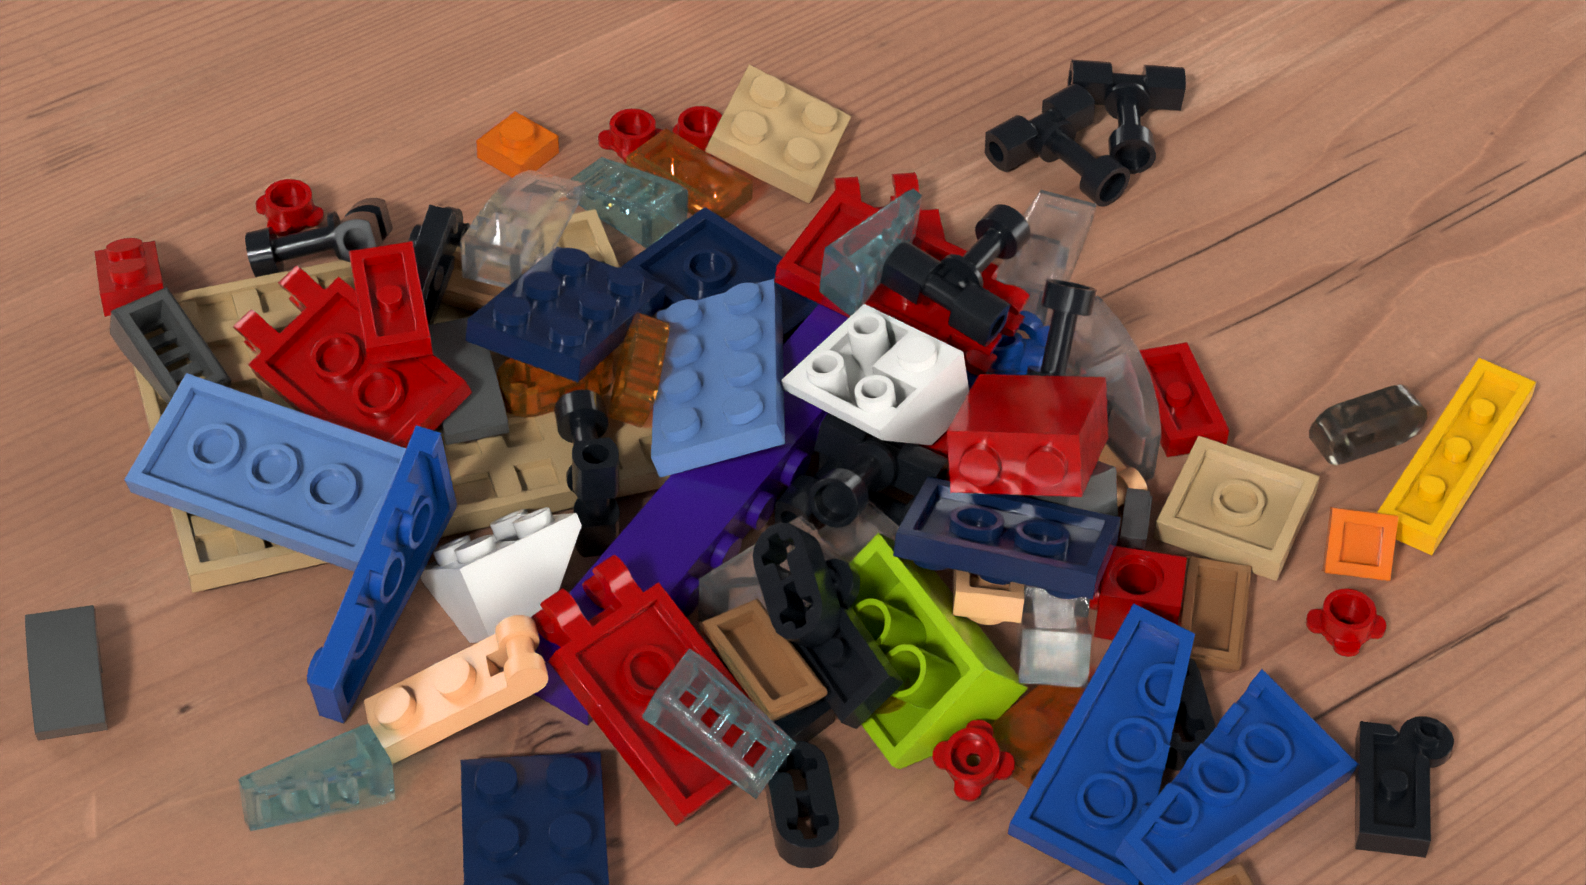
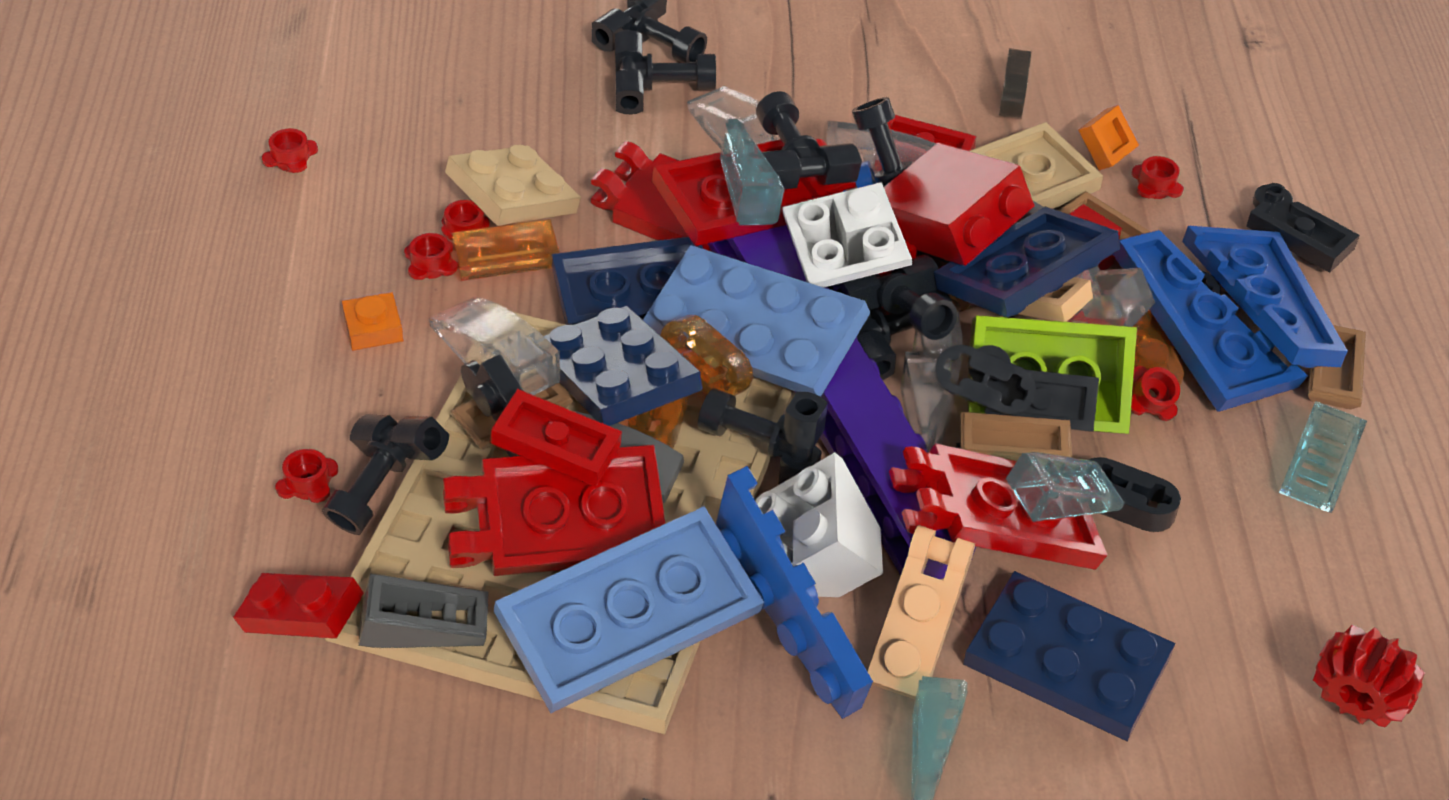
camera: 55 degrees left, 0 degrees up
(649, 214) = (507, 282): clear light blue slope -> none
(1456, 454) = (1064, 62): yellow plate -> none

